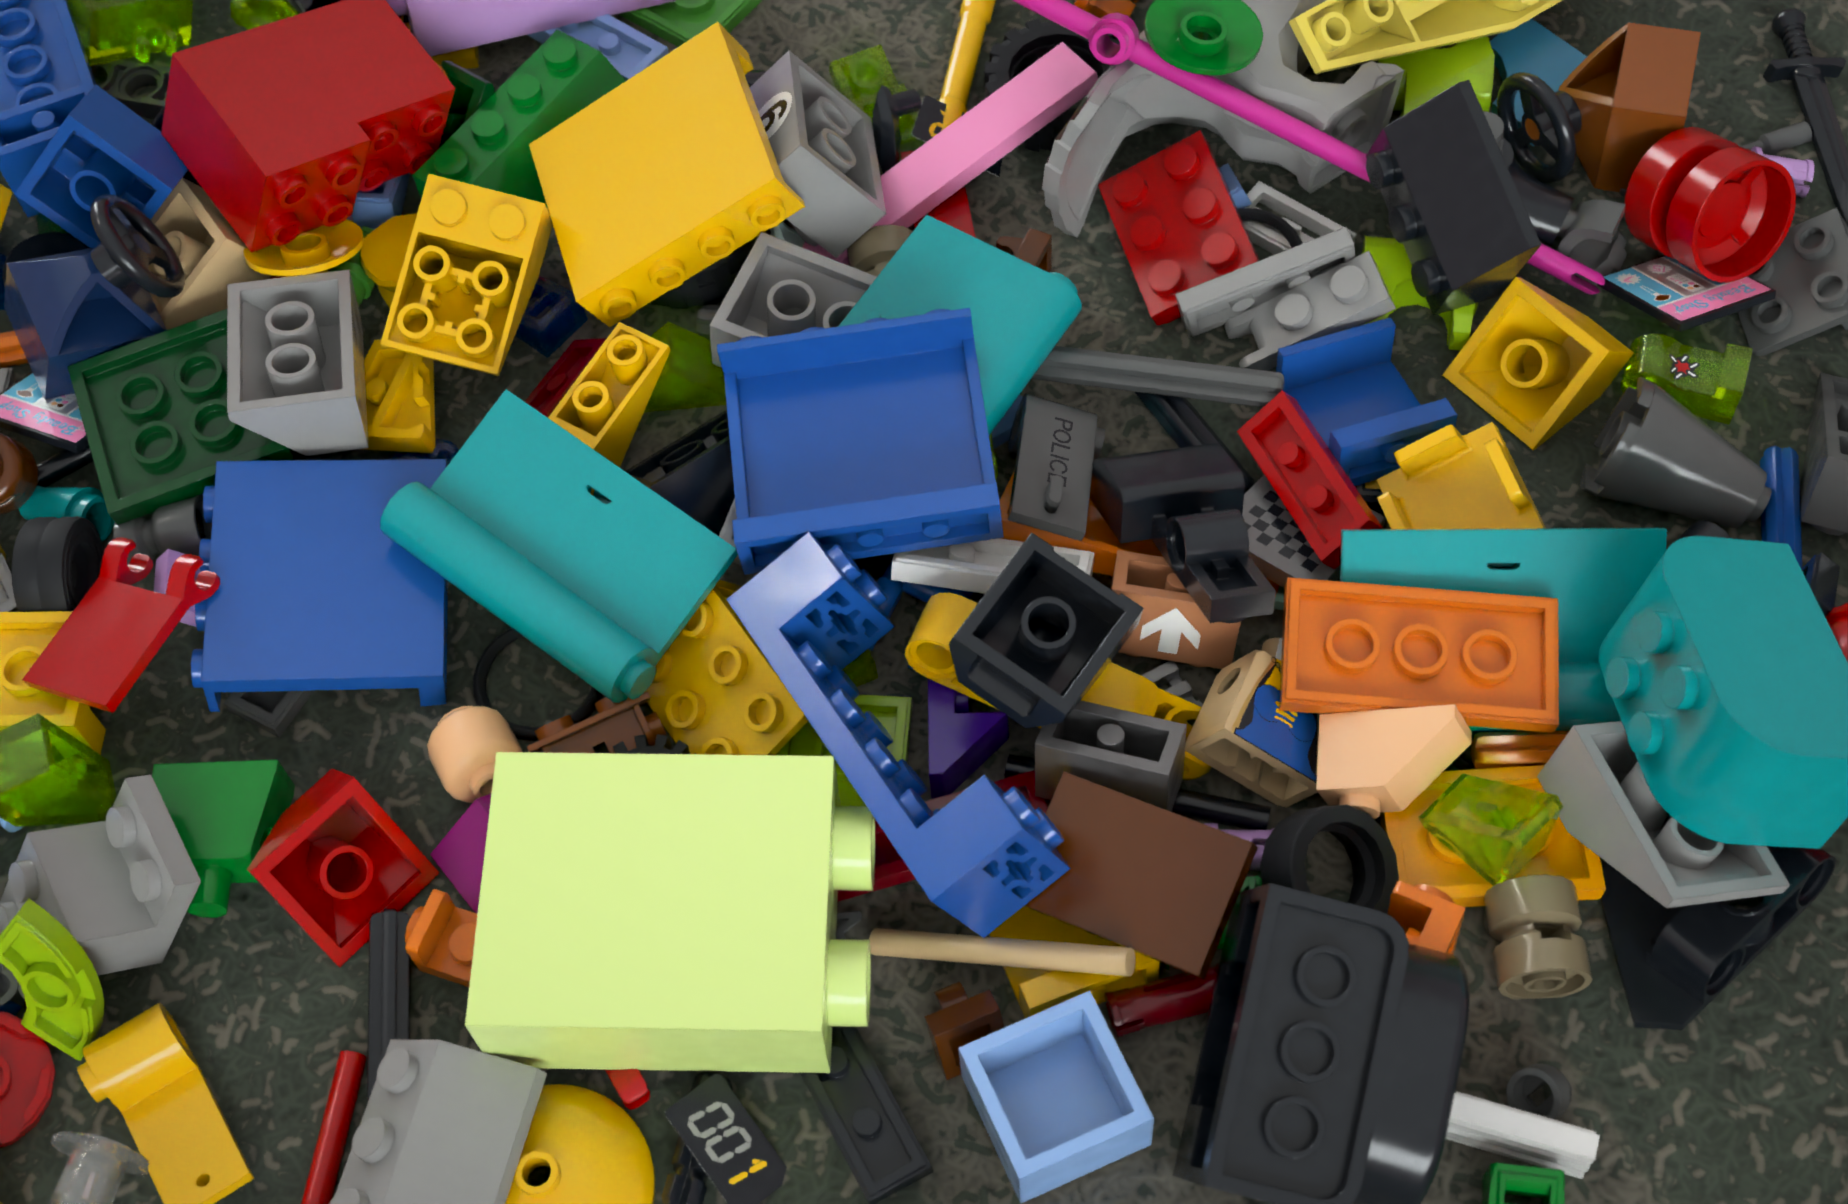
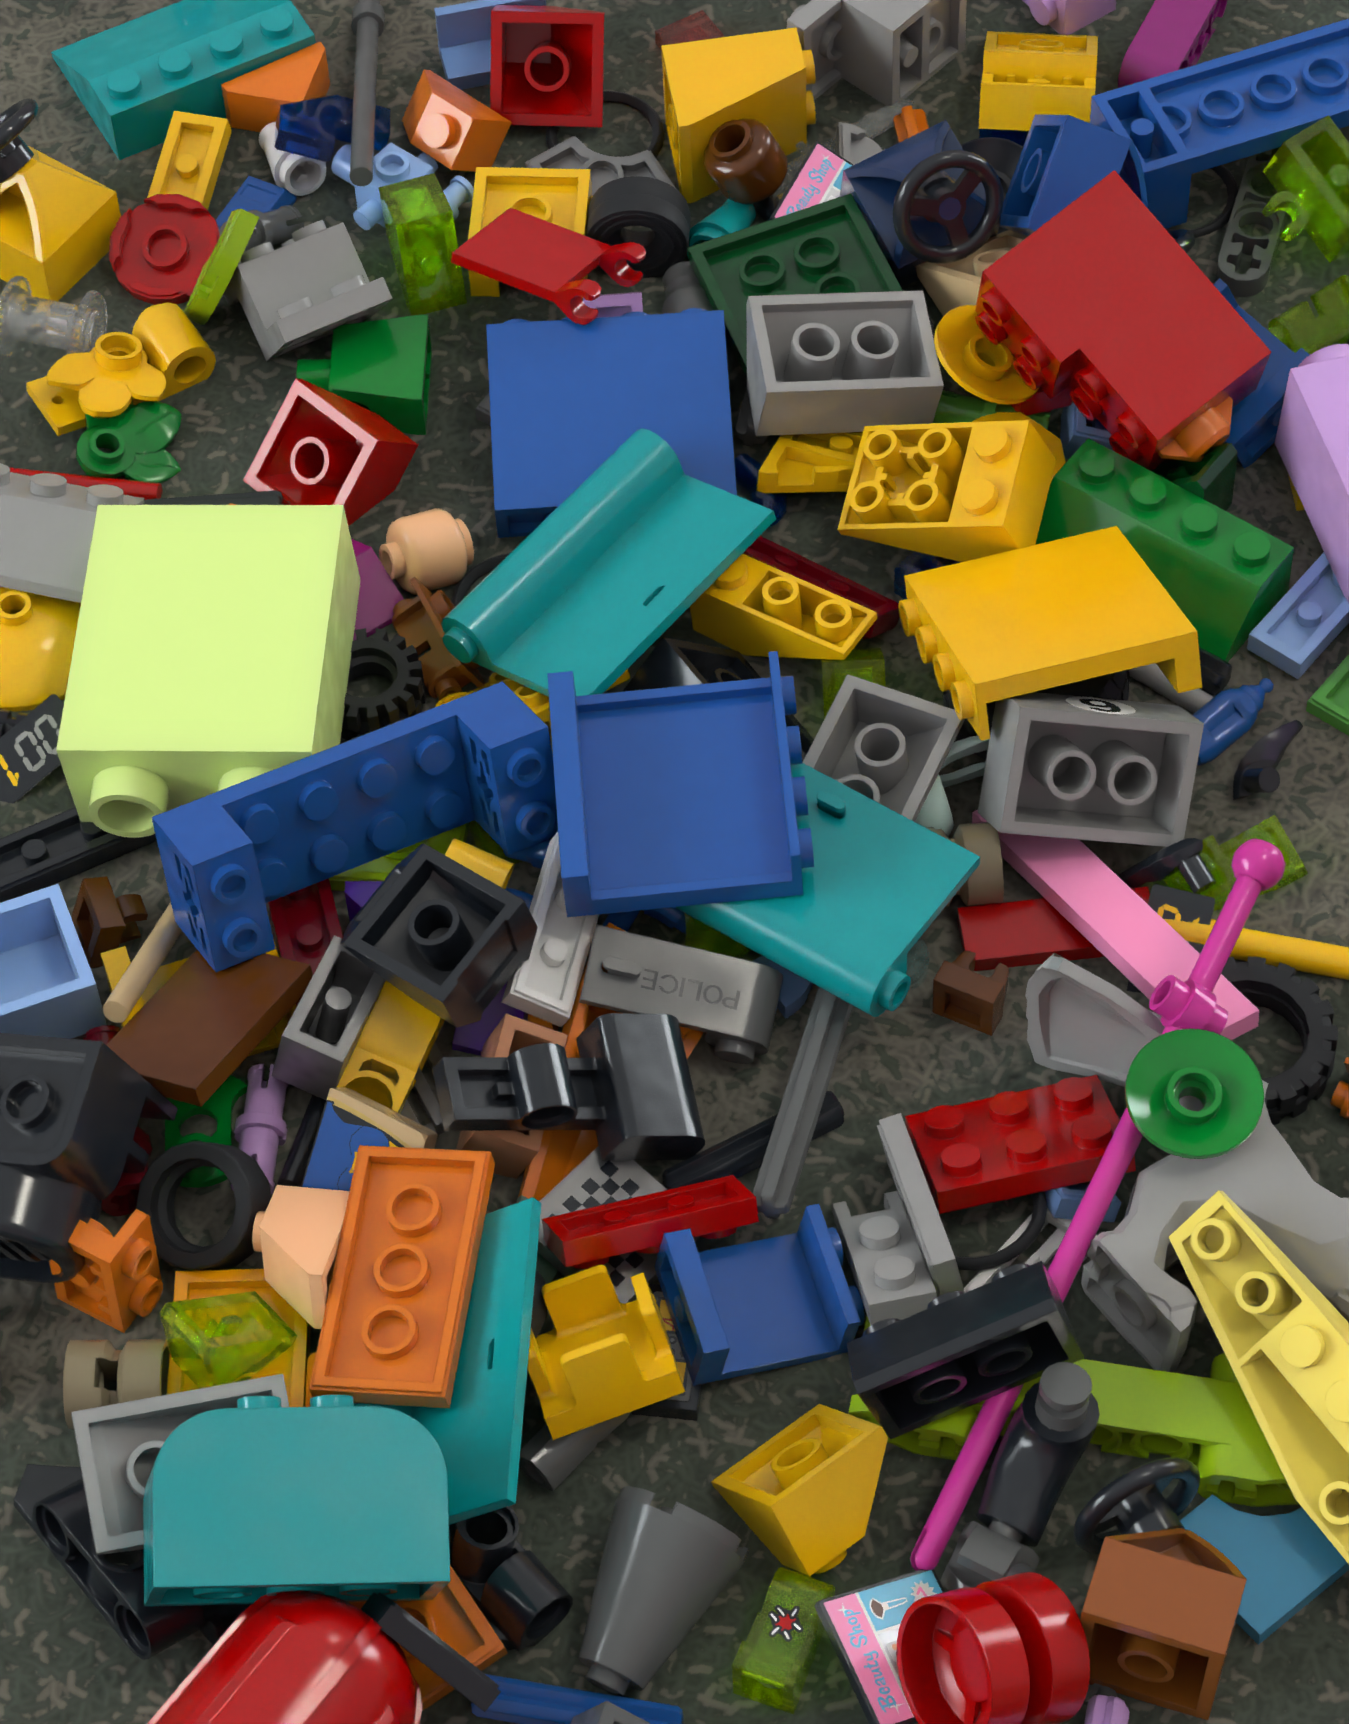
camera: 90 degrees right, 5 degrees down
(185, 1113) = (109, 375): none -> yellow plate
(263, 1086) = (138, 441): none -> green plate

